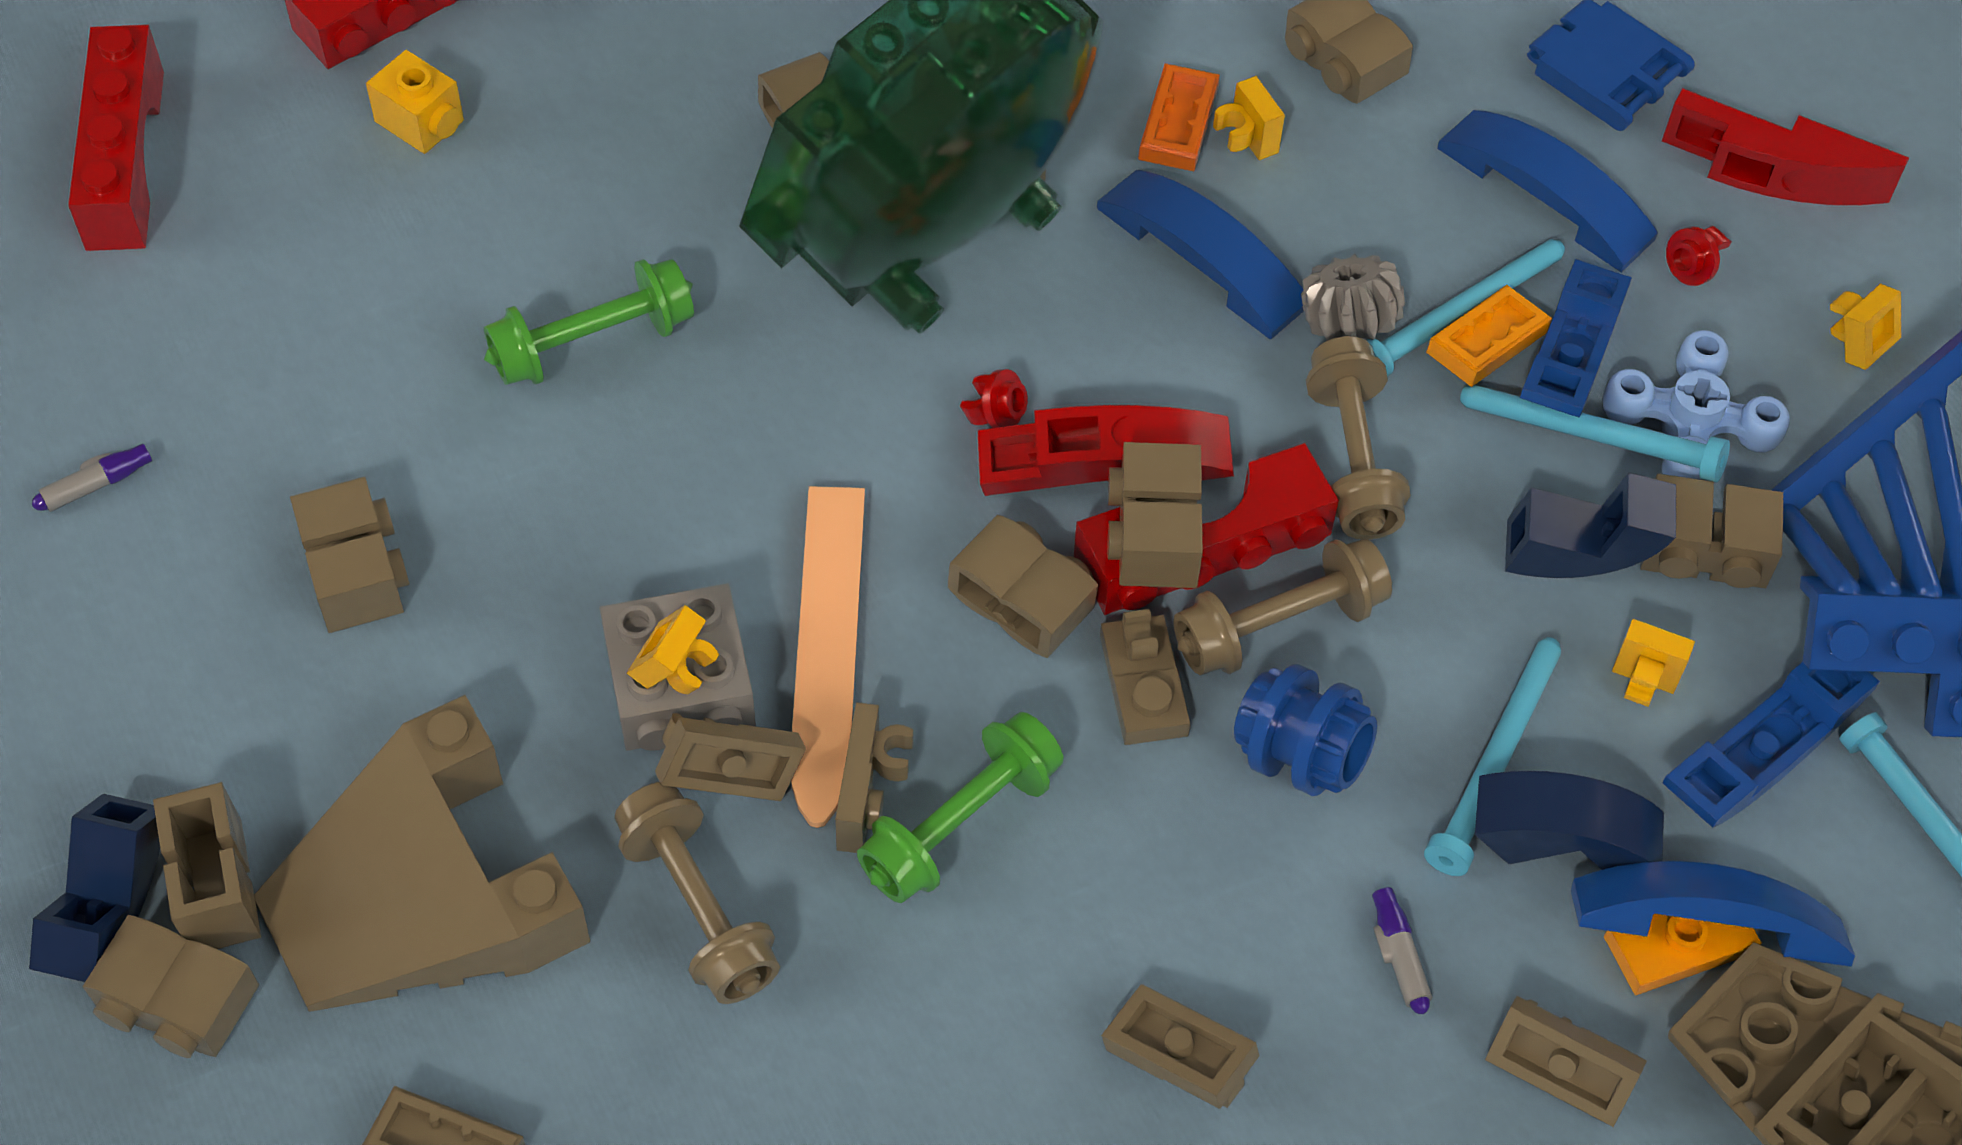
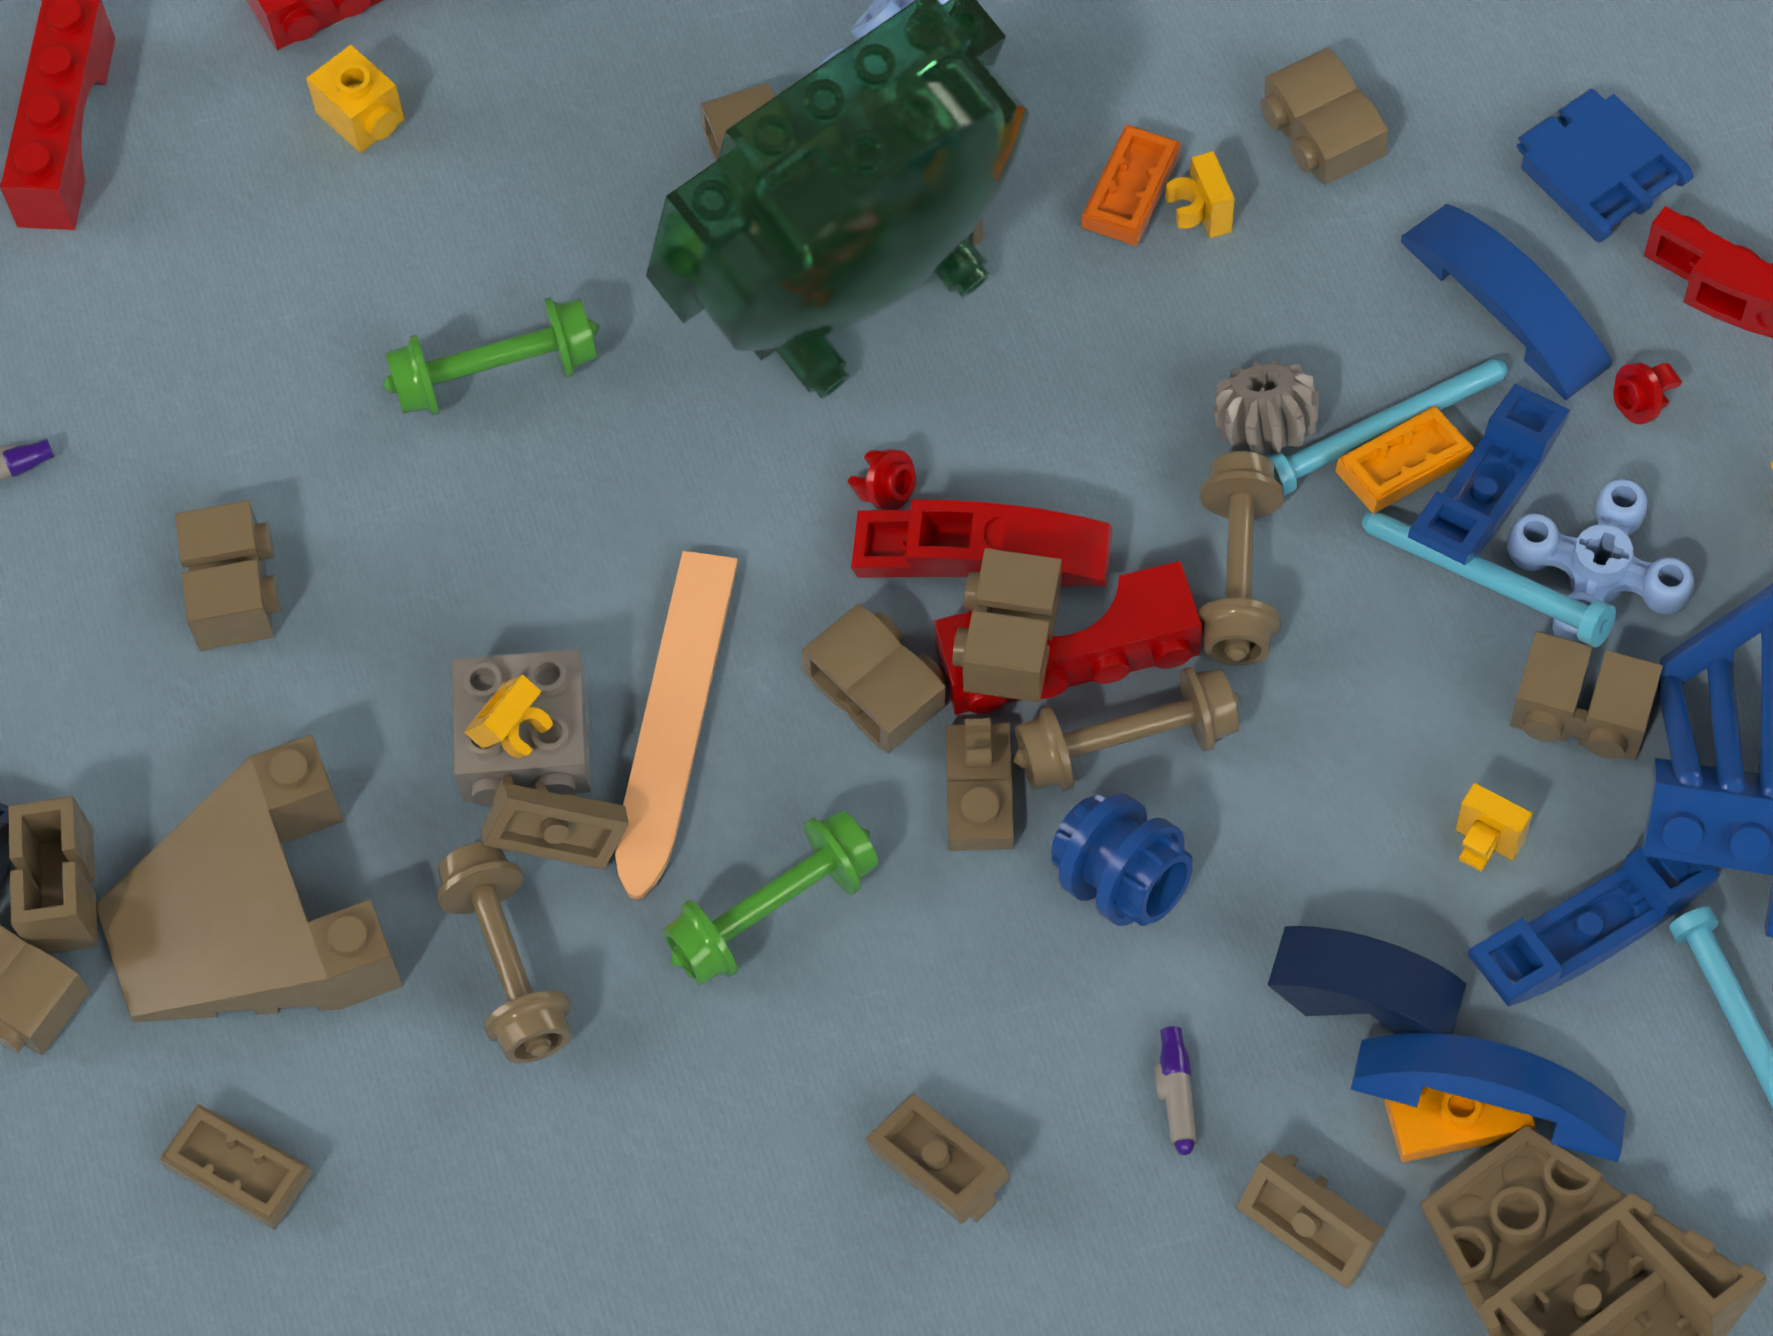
camera: 15 degrees right, 5 degrees up
(867, 751) = (688, 833): dark tan plate -> none
(1213, 242) = (1135, 330): blue slope -> none
(1451, 850) = (1246, 996): medium azure bar -> none
(1578, 538) = (1452, 690): dark blue brick -> none

